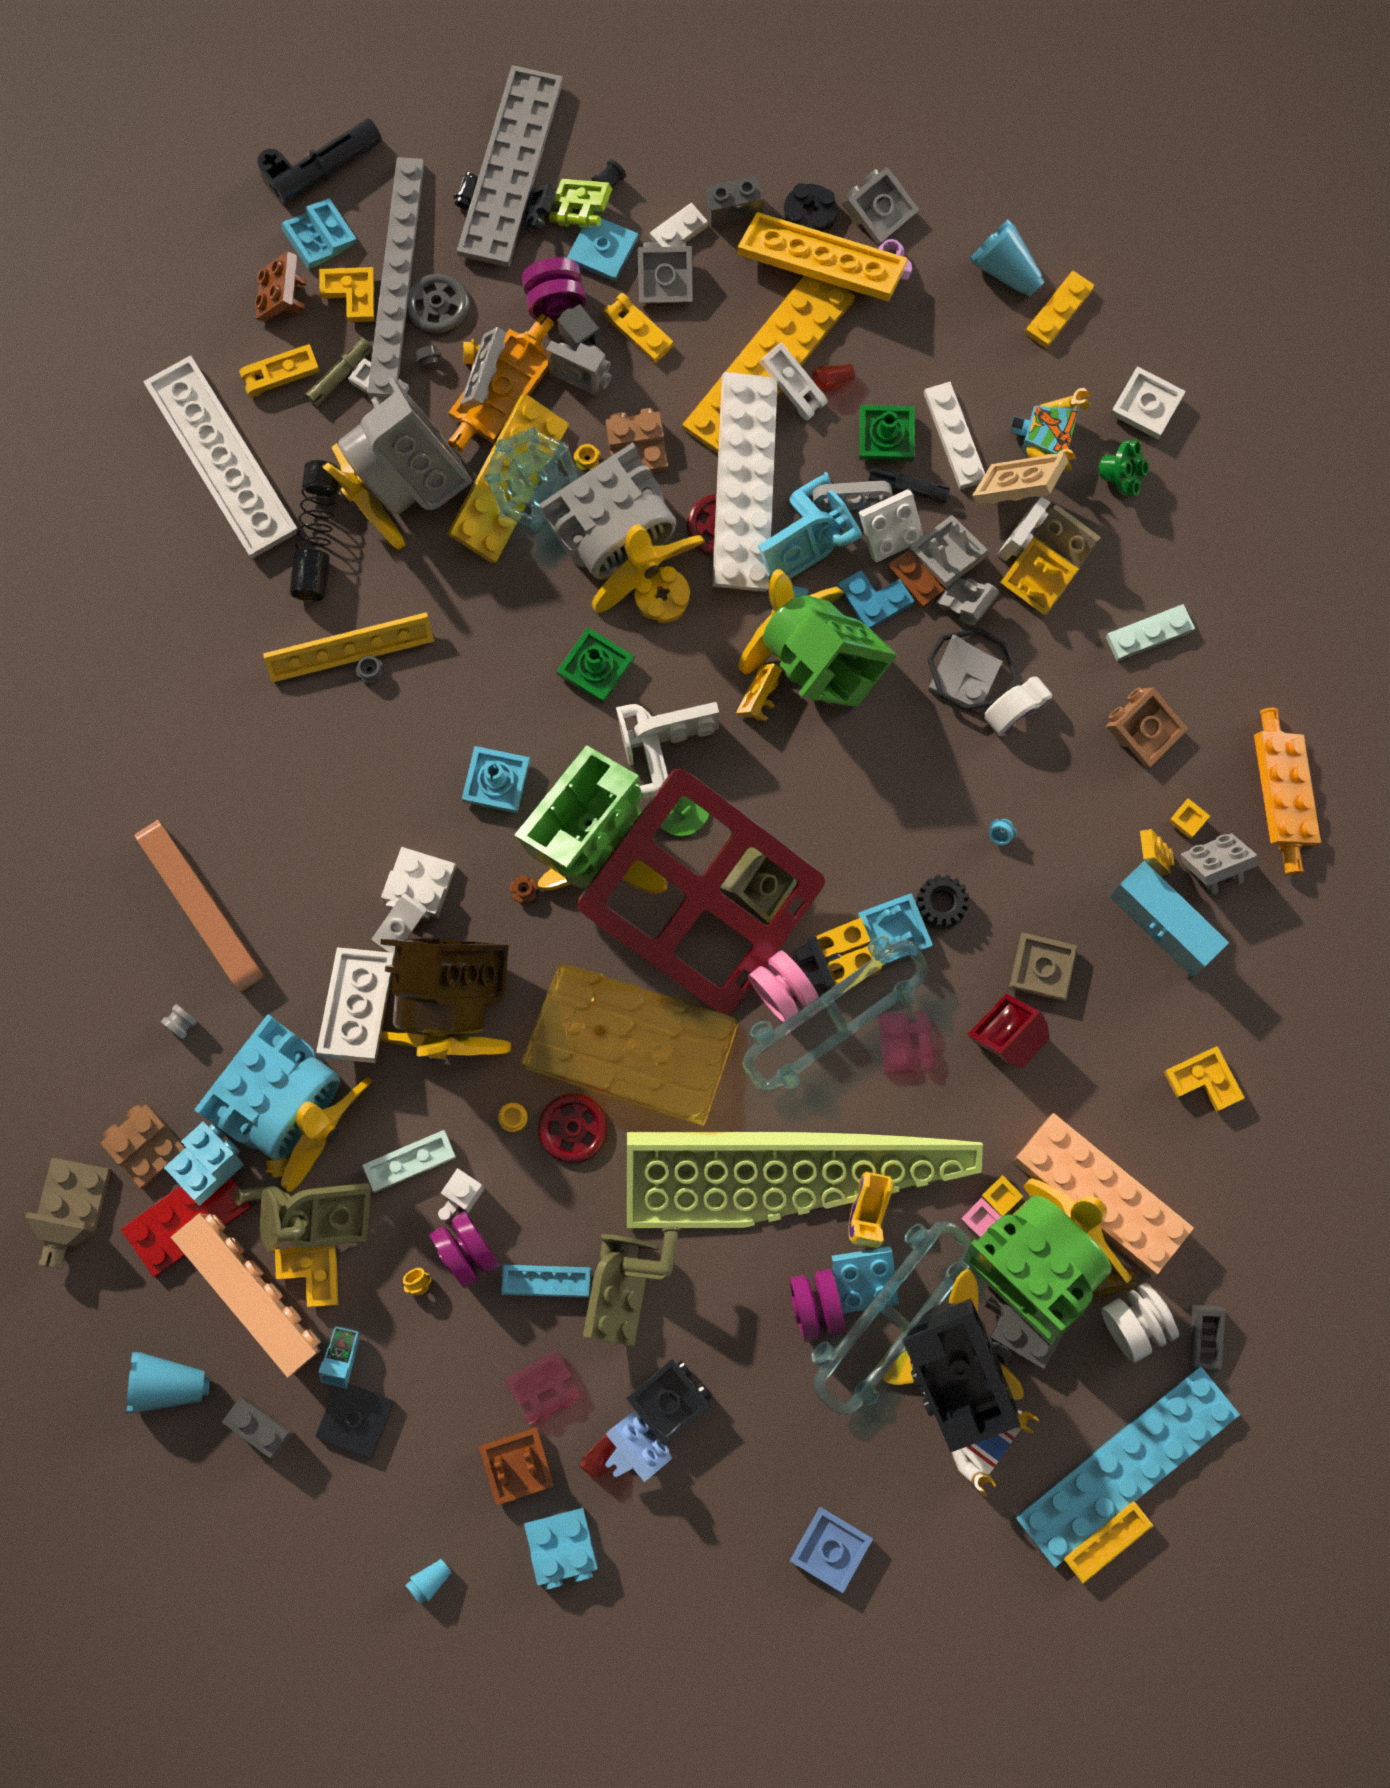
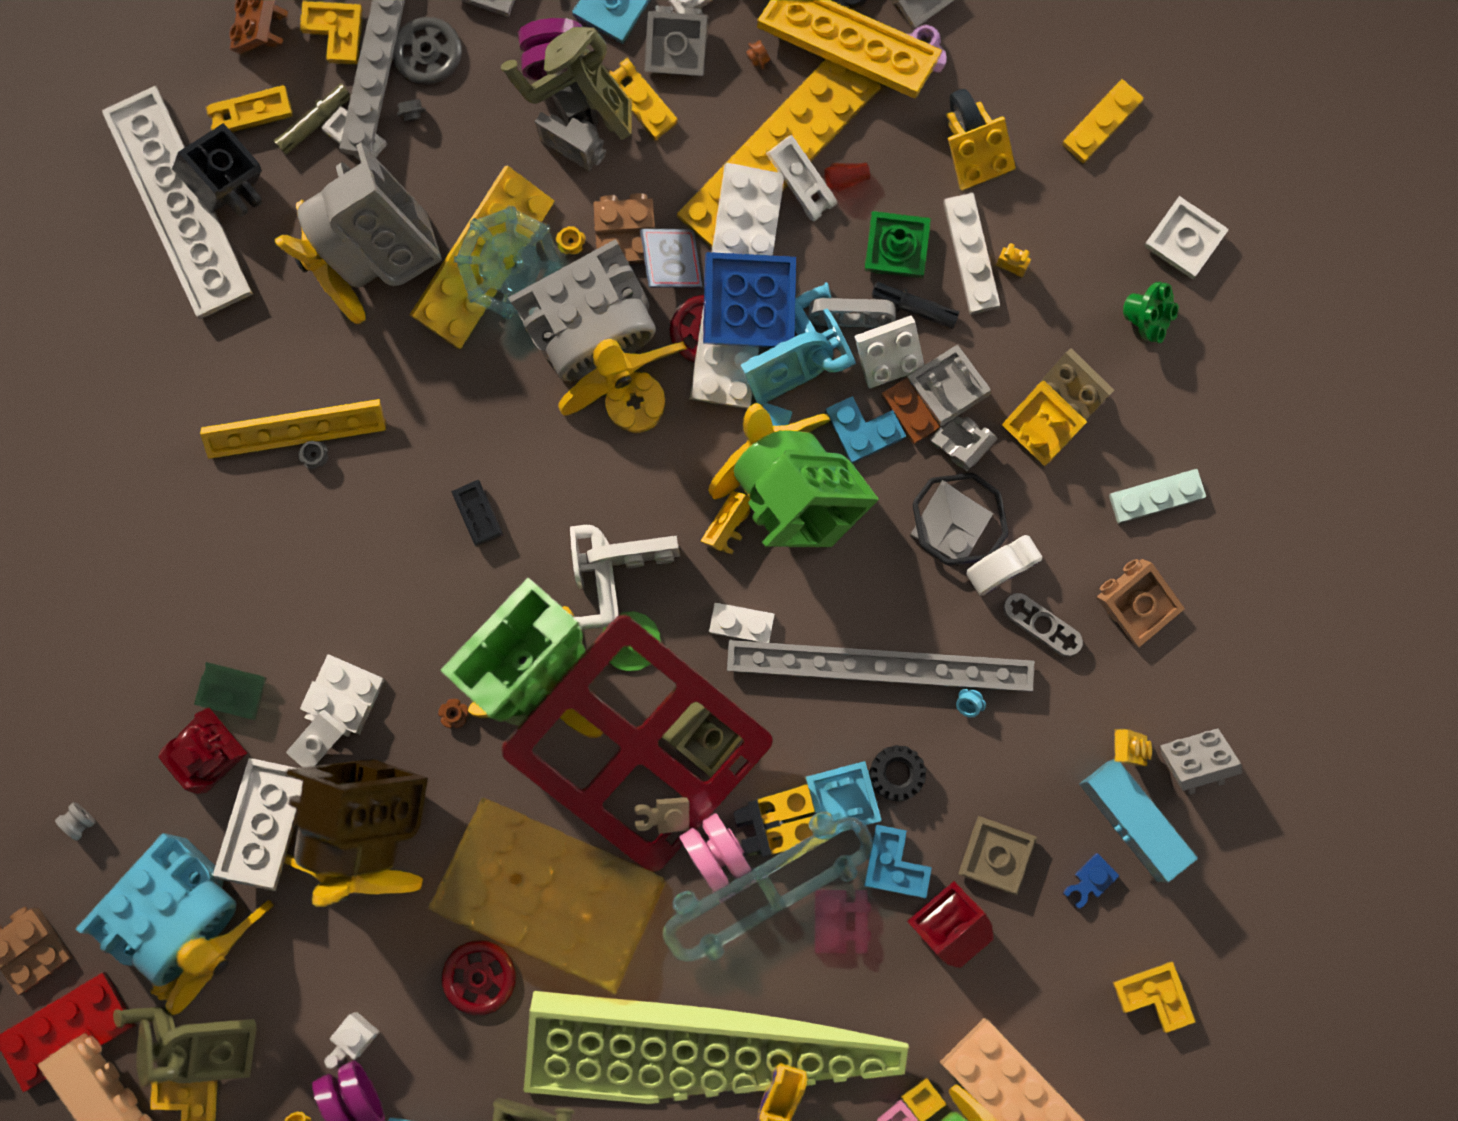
camera: 10 degrees right, 5 degrees up
(199, 906) = (108, 697): nougat beam -> none
(204, 1162) = (85, 979): medium azure plate -> none
(259, 423) = (219, 171): none -> black hinge
(293, 946) = (201, 753): none -> dark red brick
(311, 564) = (262, 335): black piece -> none
(313, 889) = (230, 691): none -> clear green plate
(409, 1161) = (302, 996): light aqua plate -> none
(470, 352) = (457, 110): yellow plate -> none
(483, 368) = (467, 133): light grey plate -> none
(496, 779) = (435, 590): medium azure plate -> none
(512, 1117) = (416, 960): yellow plate -> none
(518, 372) = (478, 156): light orange plate -> none
(527, 706) = (477, 513): none -> black plate
(578, 292) = (570, 62): none -> olive plate
(595, 665) = (554, 474): green plate -> none
(681, 463) = (671, 258): none -> piece
(736, 957) = (668, 816): none -> dark tan plate
(740, 279) = (757, 54): none -> dark orange plate
(758, 489) = (749, 299): none -> blue plate
(782, 782) = (741, 623): none -> white plate
(915, 807) = (880, 666): none -> light grey plate
(944, 991) = (888, 871): none -> dark azure plate
(949, 335) = (979, 144): none -> yellow plate
(994, 435) = (1014, 260): none -> yellow plate
(1009, 260) = (1053, 62): medium azure cone -> none
(1020, 479) = (1035, 315): tan plate -> none
(1024, 530) = (1028, 376): white plate -> none
(1051, 426) = (1076, 260): torso -> none
(1074, 773) = (1066, 630): none -> light grey beam
(1134, 980) = (1094, 877): none -> blue plate
(1189, 818) = (1174, 708): yellow plate -> none
(1286, 790) = (1283, 687): light orange plate -> none

